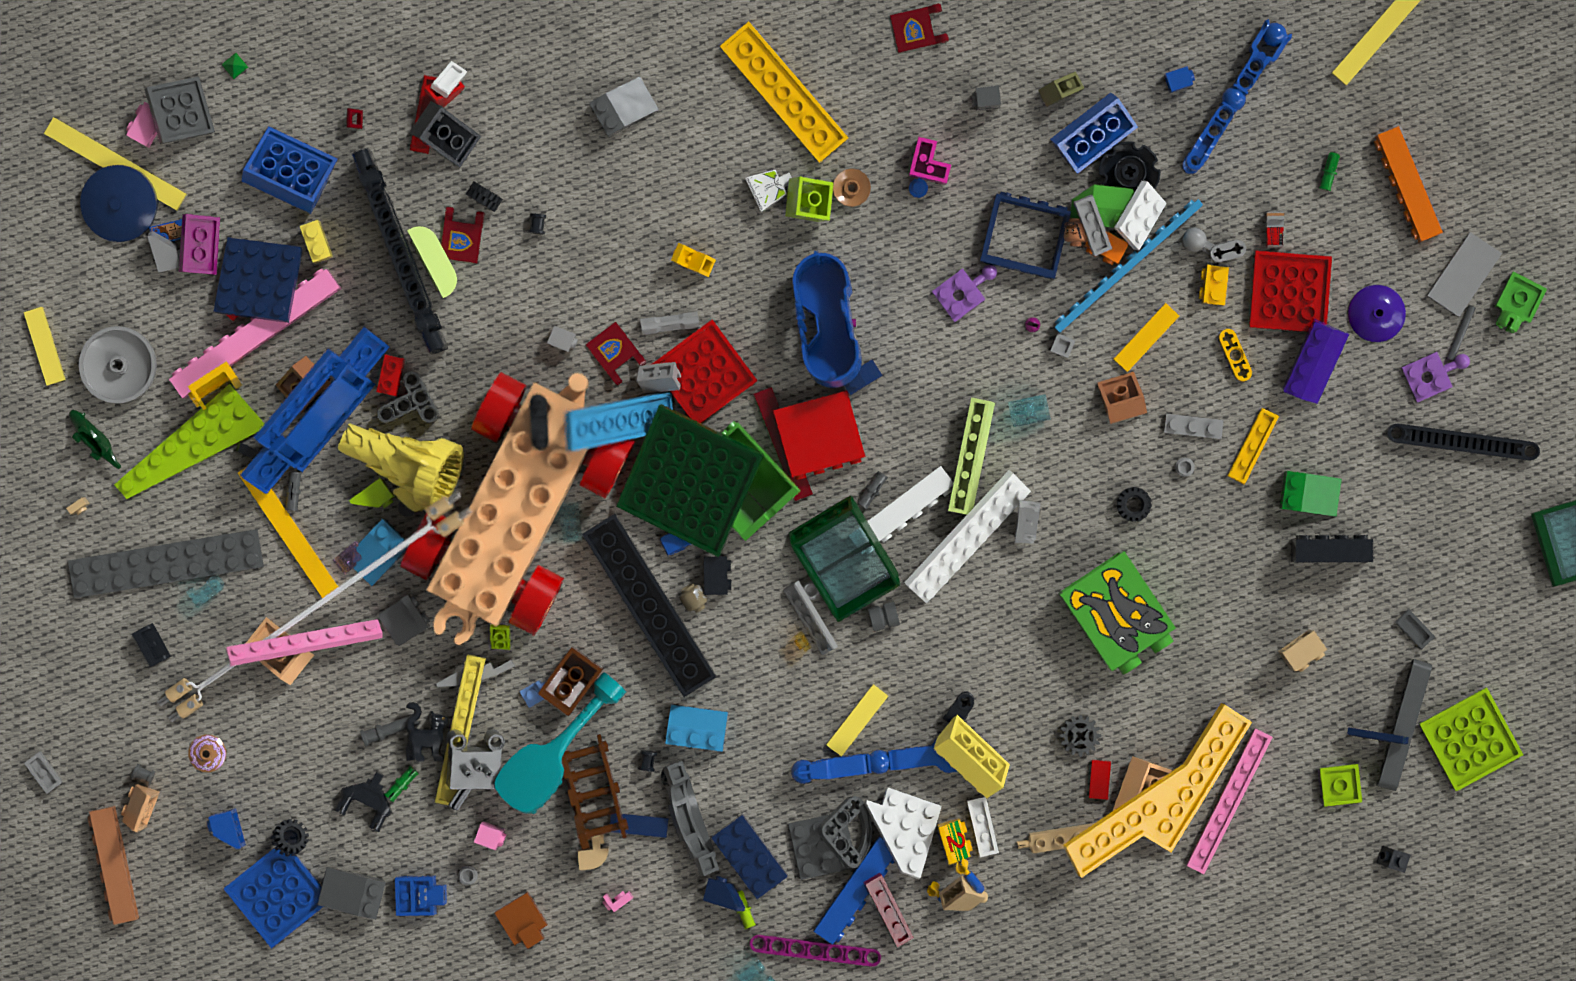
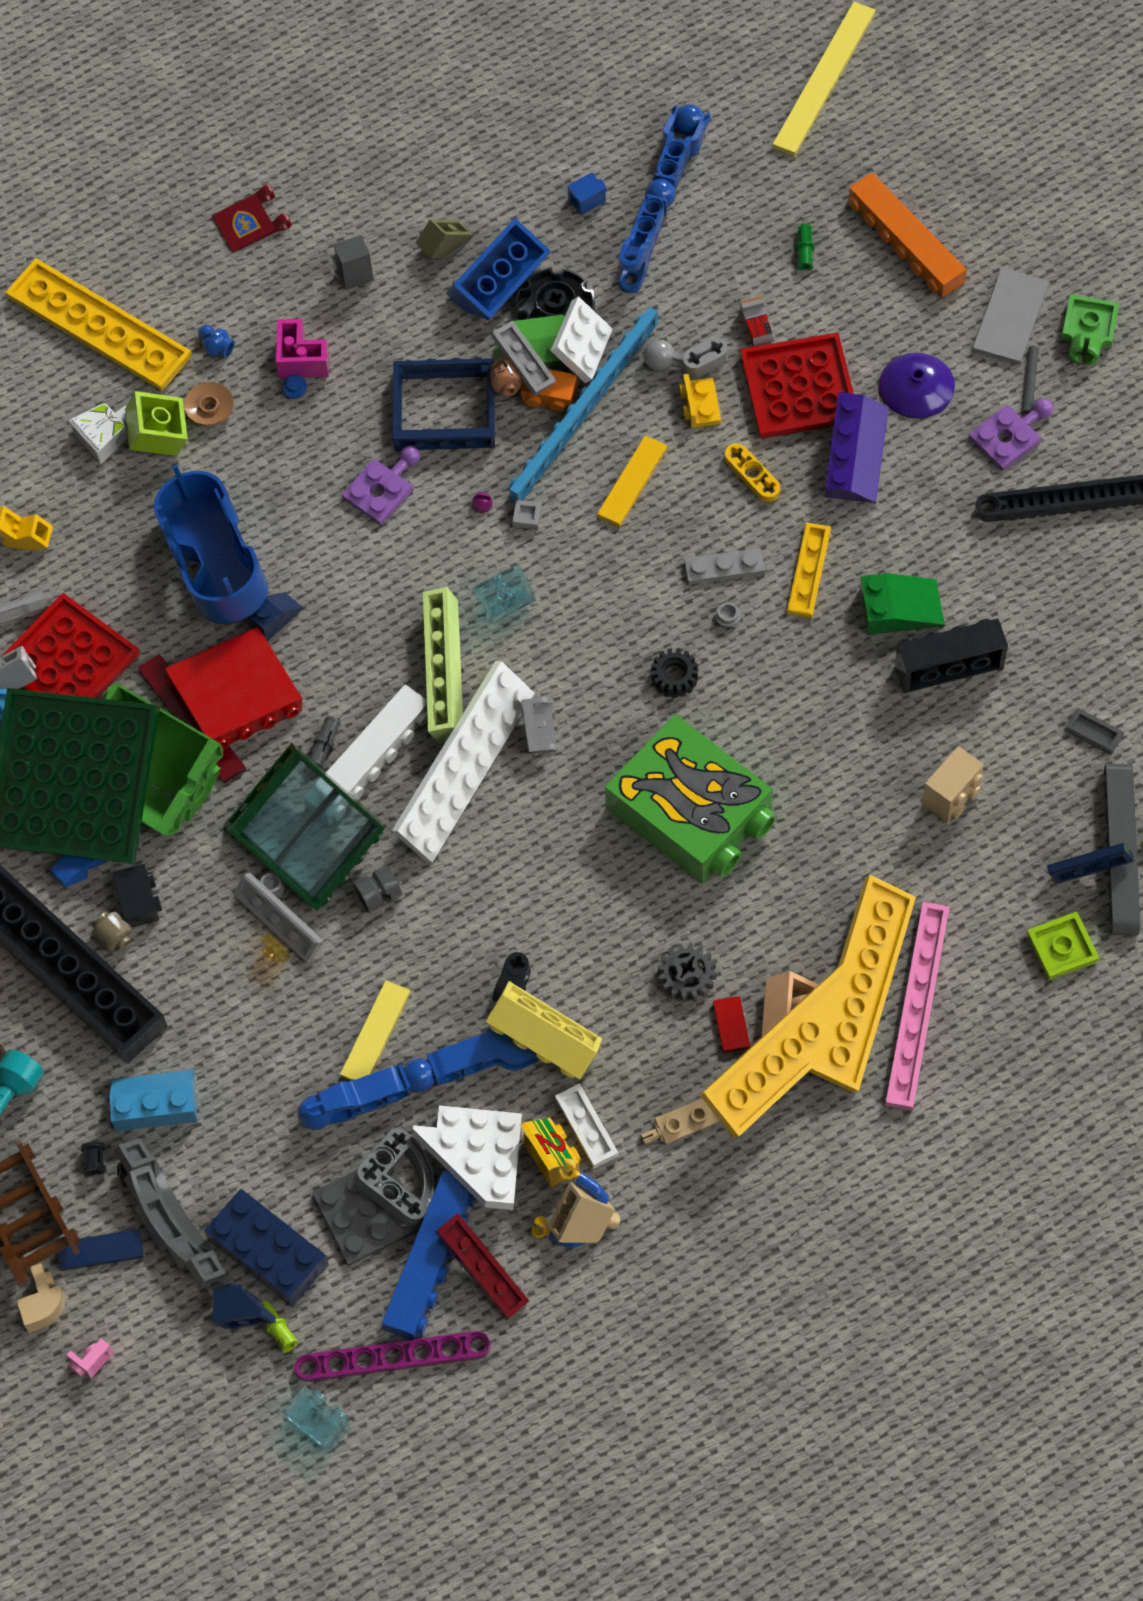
camera: 10 degrees left, 25 degrees down
(871, 134) = (216, 341): none -> blue animal
(1122, 397) = (623, 554): nougat slope -> none

